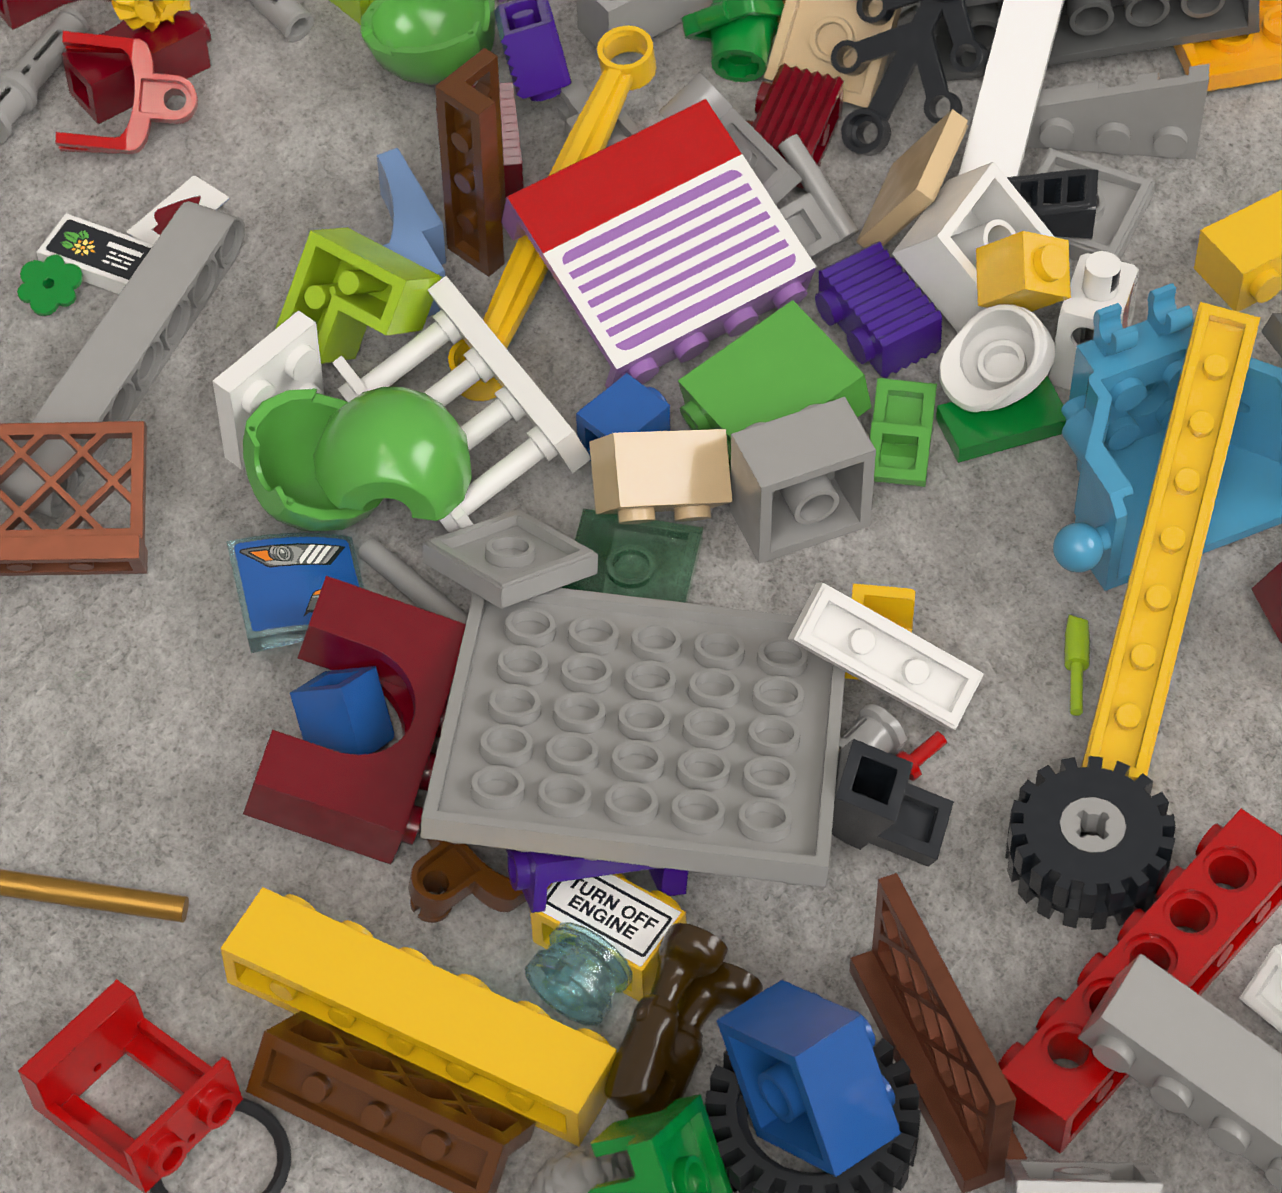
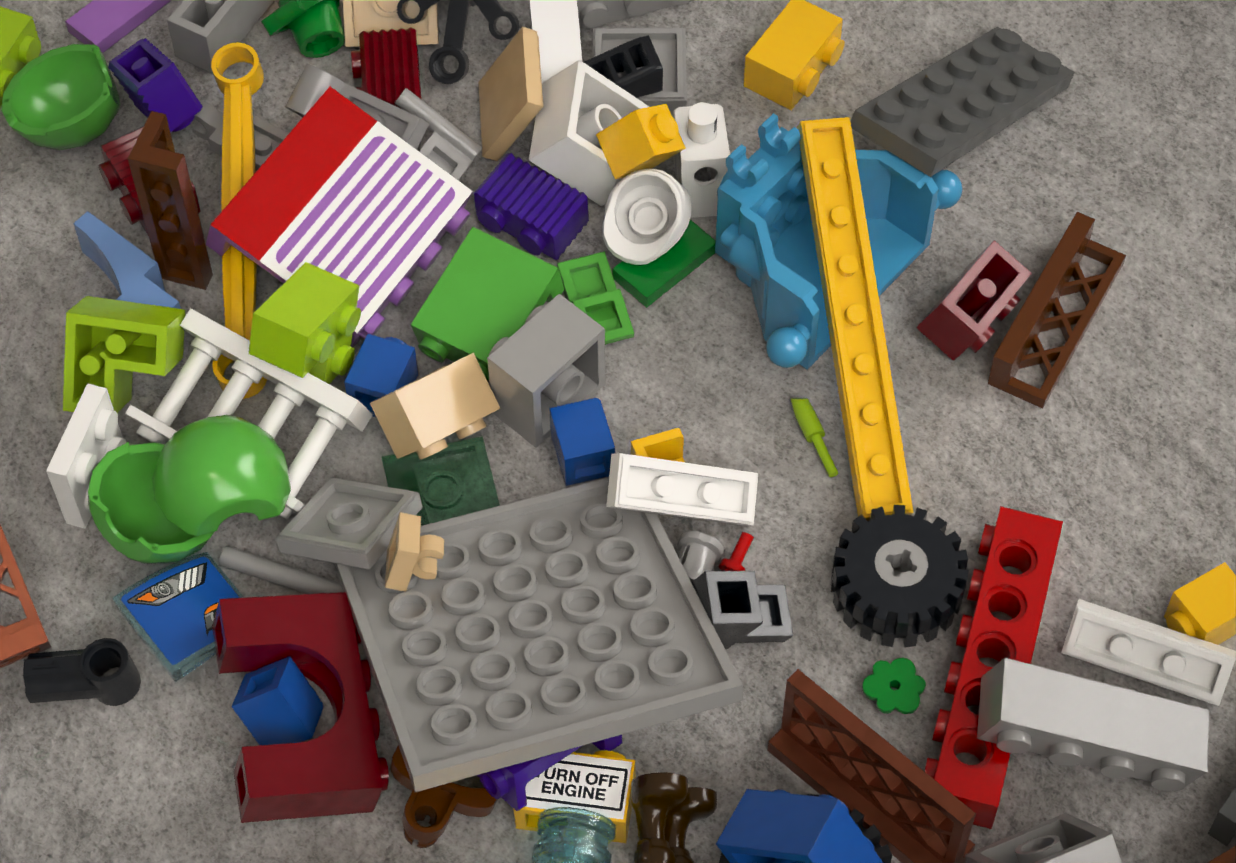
camera: 25 degrees left, 5 degrees up
(171, 608) = (80, 673): none -> black piece
(548, 604) = (411, 553): none -> tan tile
(559, 336) = (308, 324): none -> lime brick
(804, 557) = (581, 440): none -> blue panel
(1021, 945) = (898, 675): none -> green plant

